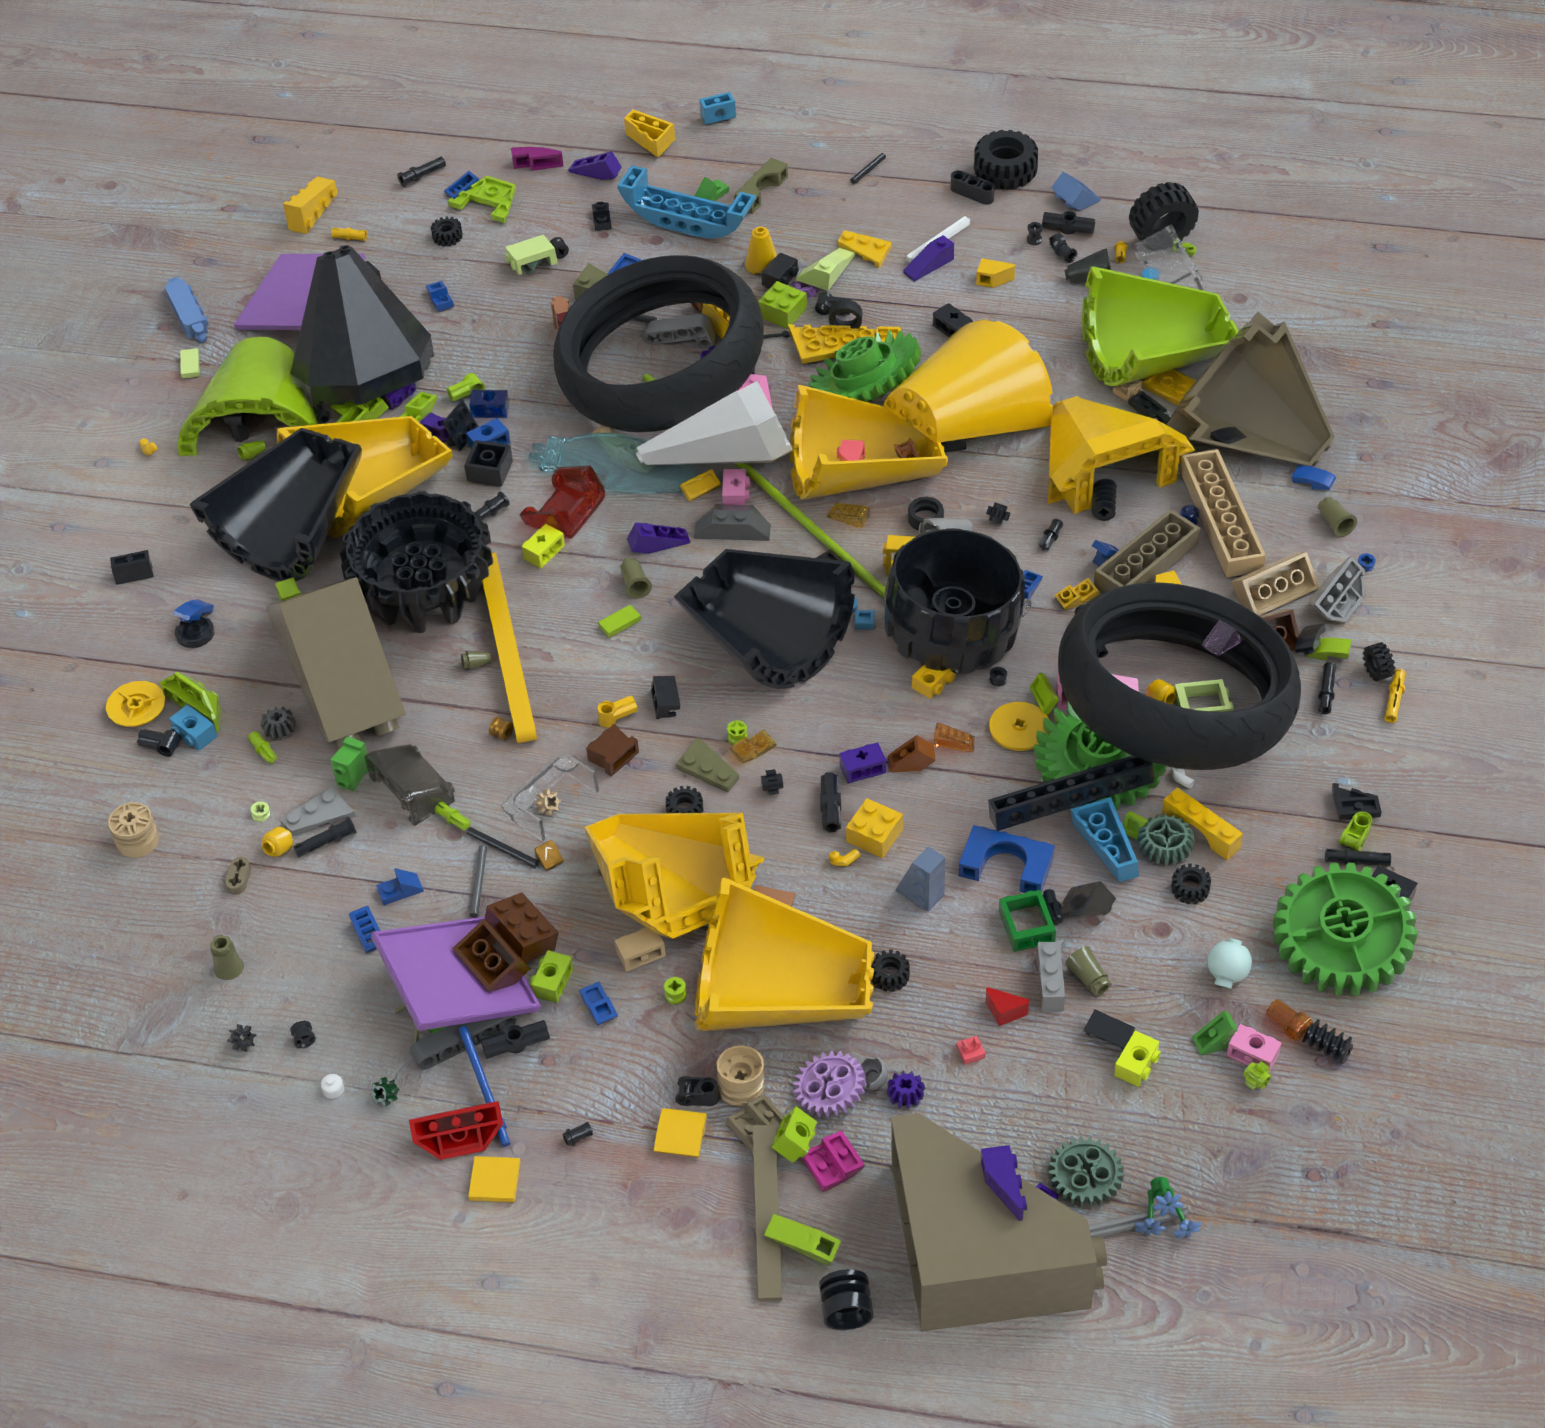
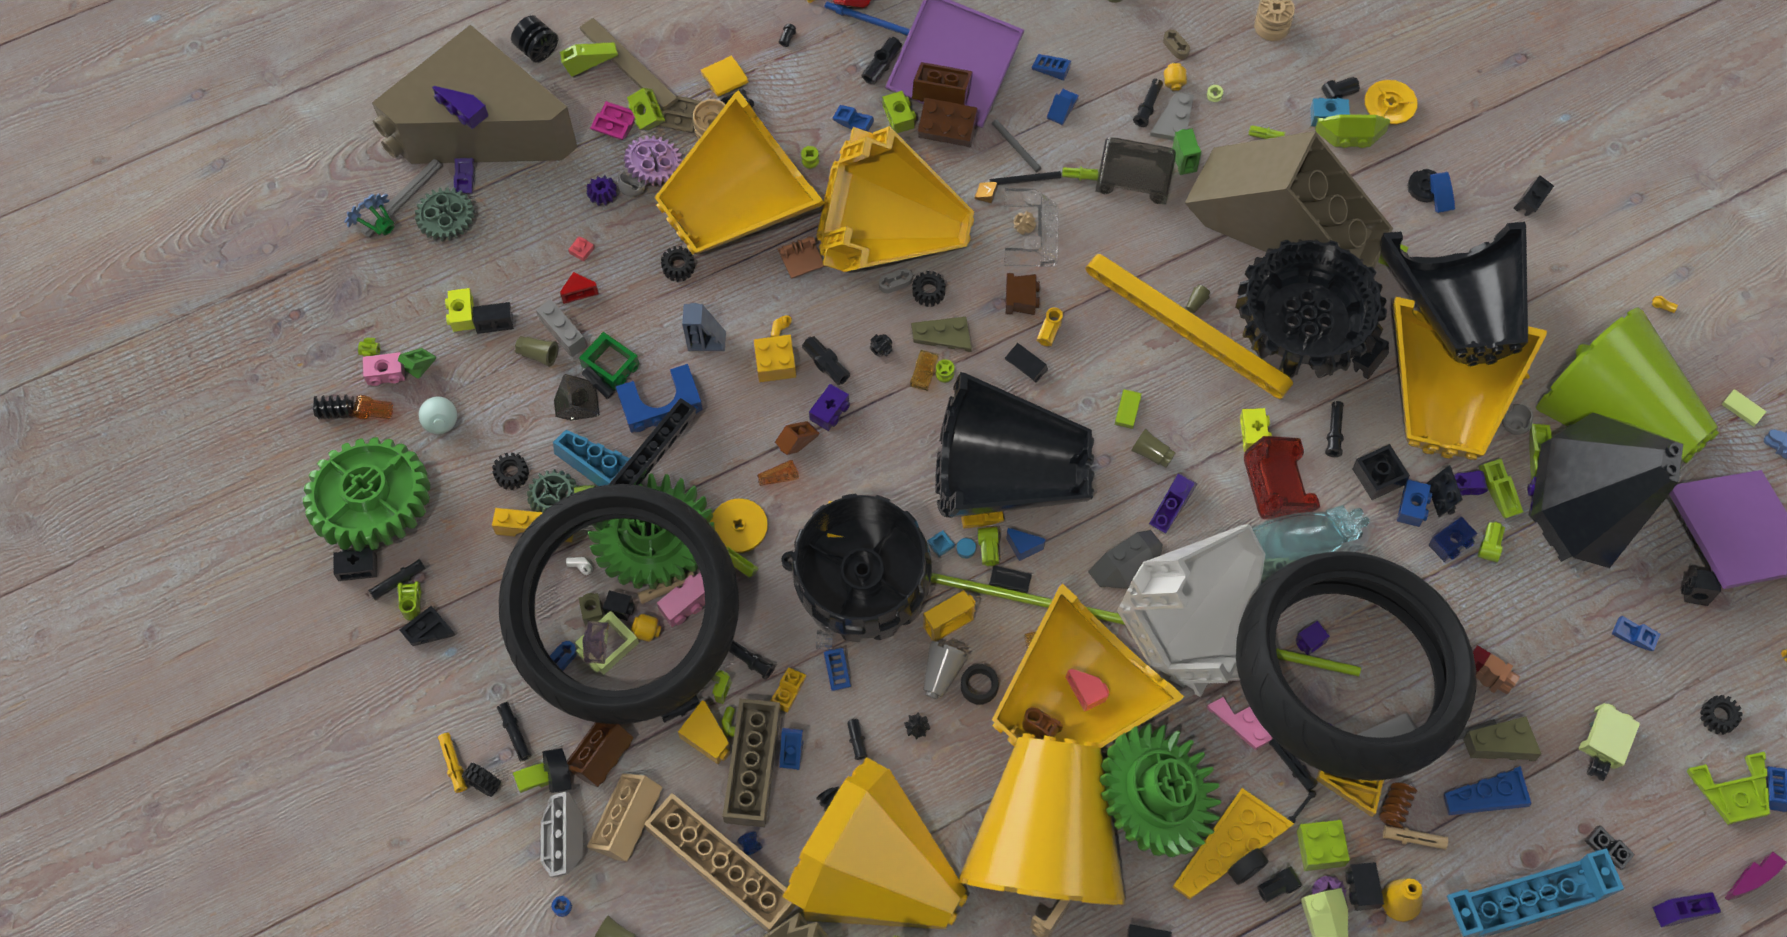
camera: 140 degrees right, 15 degrees up
(500, 728) = (1118, 255): pearl gold wheel -> none

